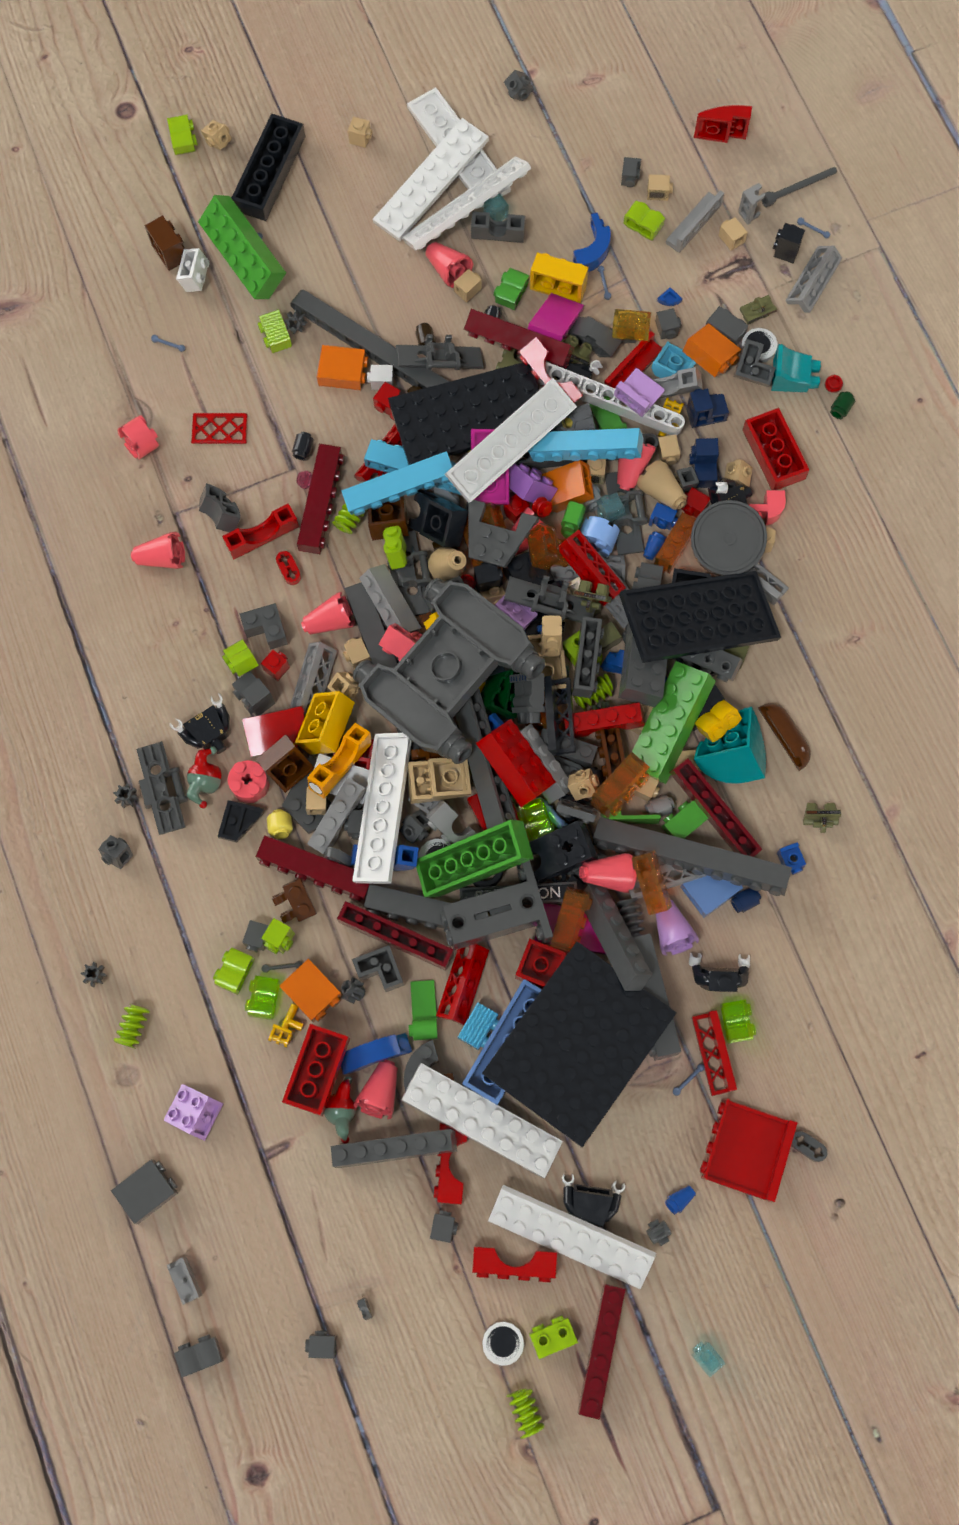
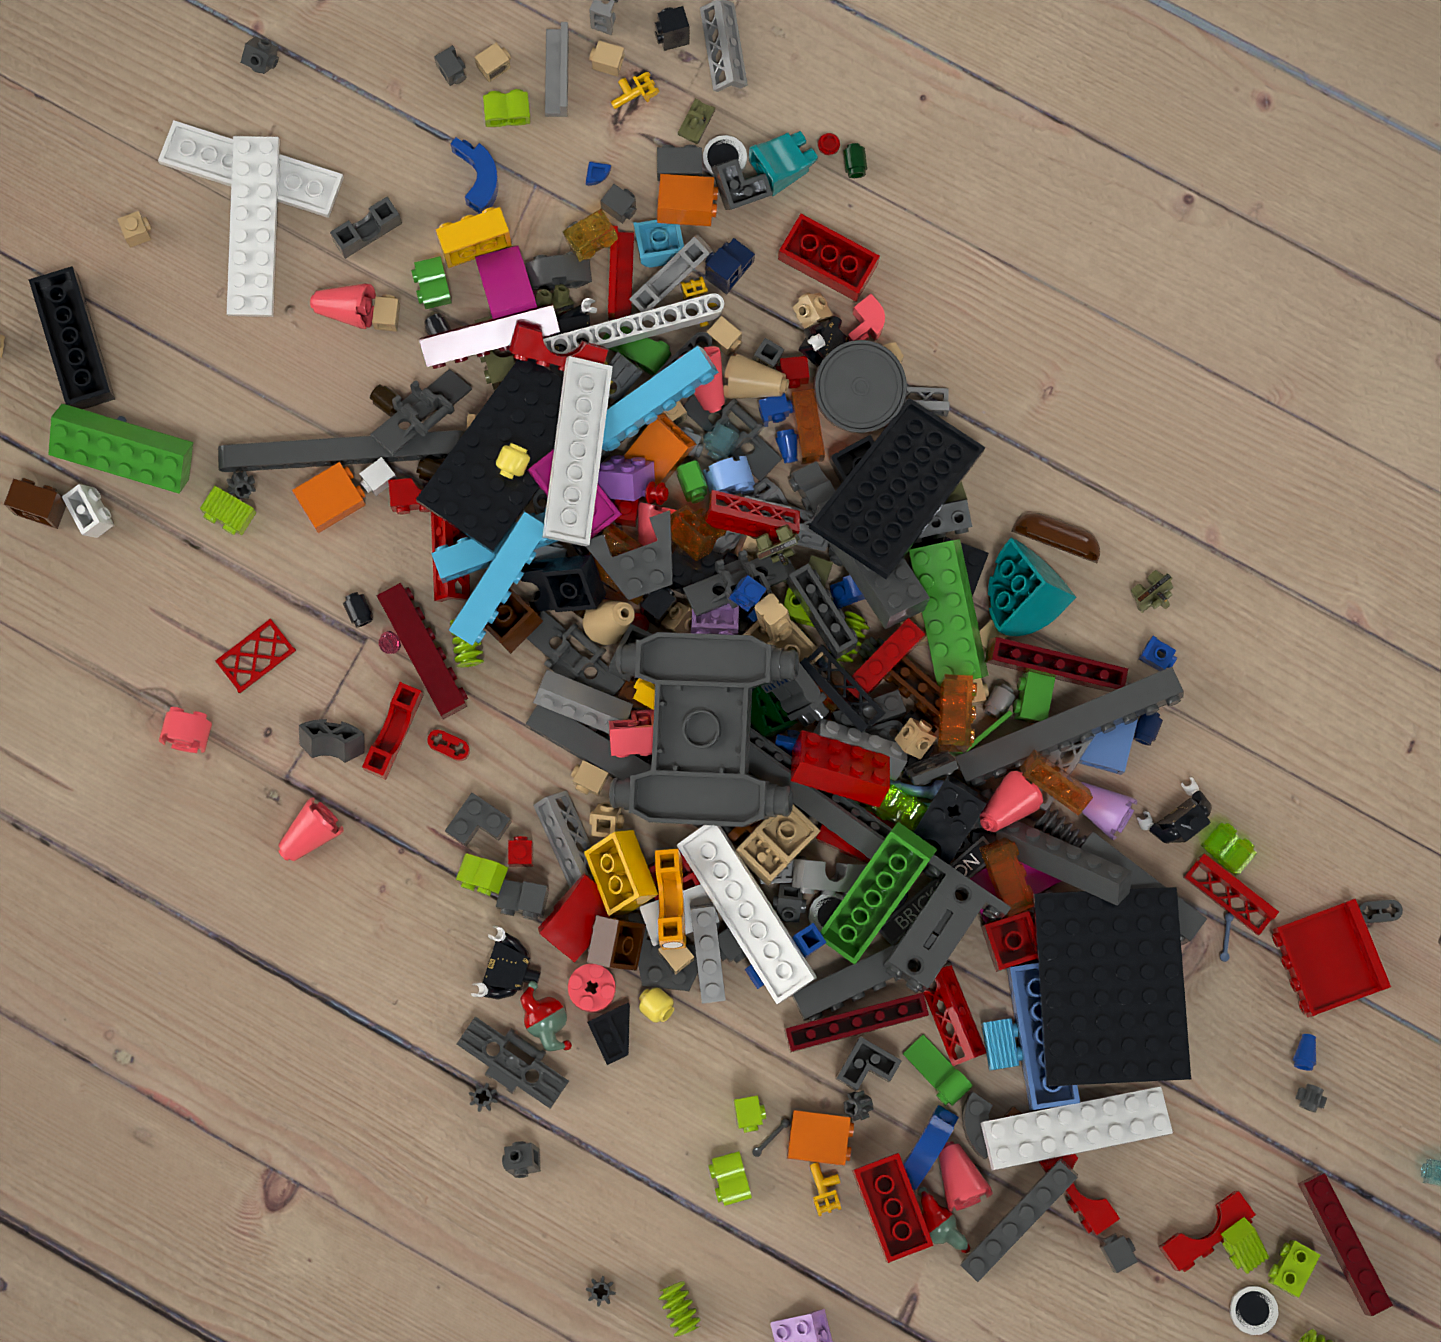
camera: 45 degrees left, 5 degrees up
(155, 339) = (106, 612): sand blue hinge -> none
(253, 936) = (724, 1129): dark grey brick -> none
(263, 997) = (779, 1180): clear neon green brick -> none
(299, 900) = (737, 1062): reddish brown plate -> none
(311, 867) = (722, 1021): dark red brick -> none
(329, 616) = (533, 763): coral cone -> none
(337, 856) = (741, 992): dark grey beam -> none
(395, 547) = (544, 644): lime brick -> none
(465, 203) = (315, 227): white plate -> none
(465, 416) = (512, 460): none -> light yellow head
(496, 207) = (346, 208): clear light blue brick -> none
(531, 1293) = (1244, 1246): none -> lime brick
(545, 605) = (747, 593): none -> blue brick
(572, 1237) = (1239, 1166): white plate -> none
(591, 1203) = (1233, 1123): black torso -> none
(607, 295) = (532, 216): sand blue hinge -> none
(638, 392) = (657, 302): lavender bracket -> none
(704, 461) = (769, 322): dark blue brick -> none
(717, 721) = (992, 576): yellow brick -> none
(742, 266) = (630, 94): none -> yellow arm

